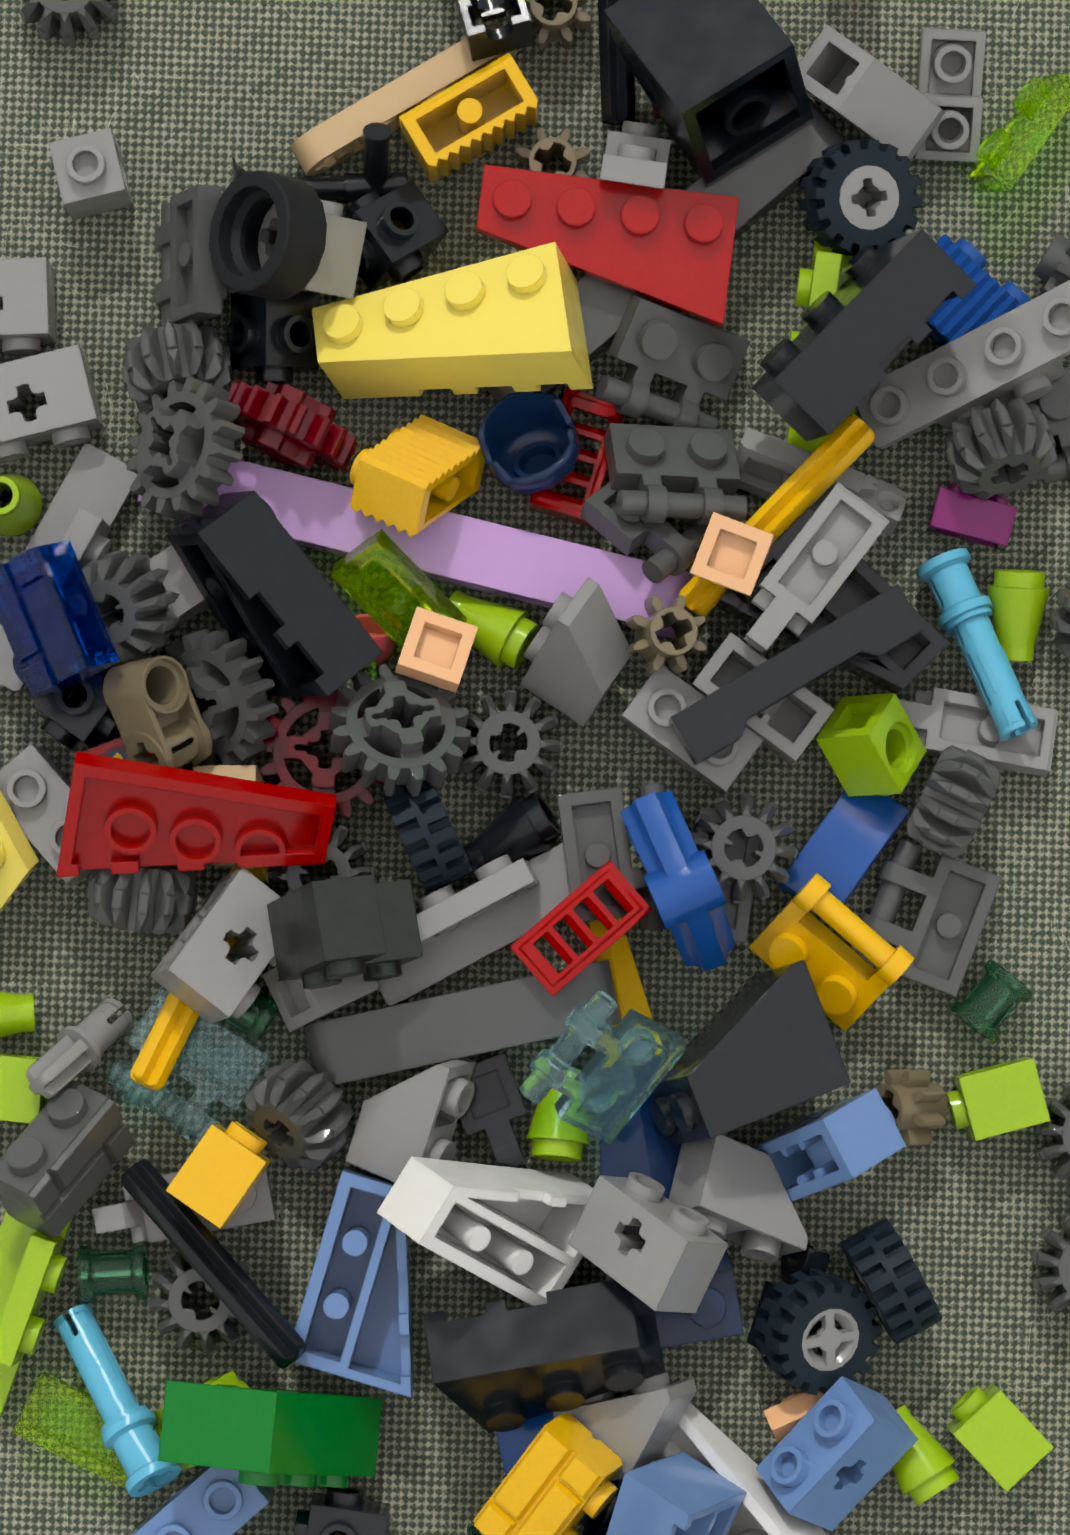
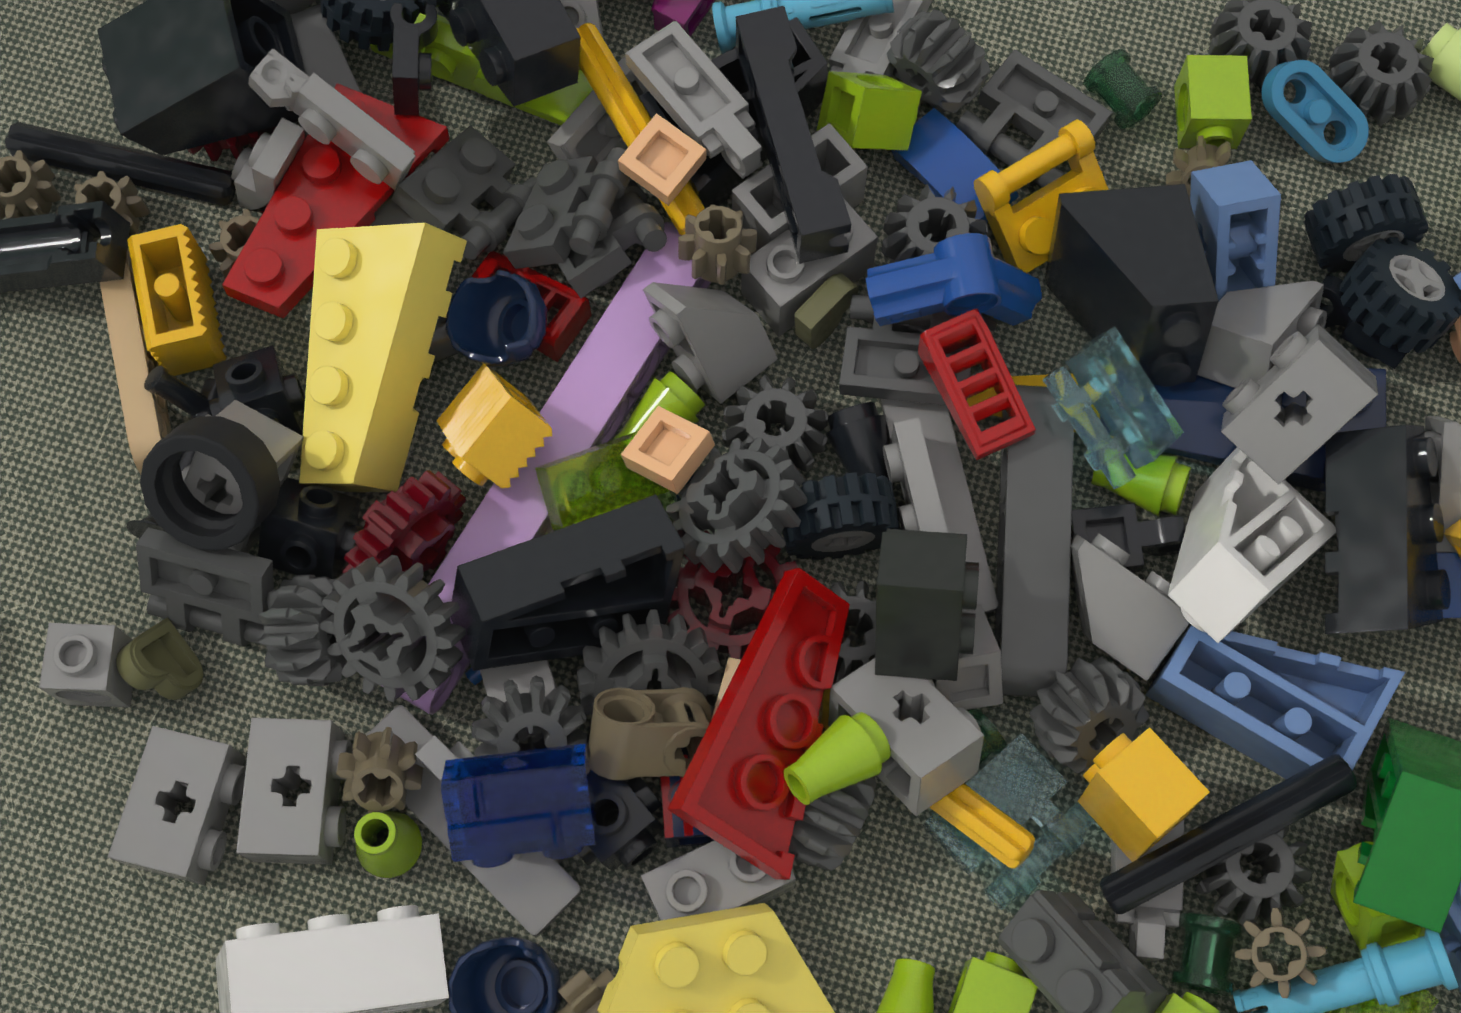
camera: 75 degrees left, 15 degrees down
(61, 478) = (379, 771): none -> dark tan gear
(78, 1049) = (969, 920): light grey axle -> none
(114, 237) = (161, 662): none -> olive tile
(136, 1342) = (1267, 967): none -> dark tan gear
(171, 891) = (839, 758): none -> lime cone
(645, 759) = (824, 310): none -> olive tile
(670, 212) = (333, 118): none -> light grey hinge
(765, 270) = (411, 68): none -> black plate
(1016, 1202) = (1314, 106): none -> dark azure plate

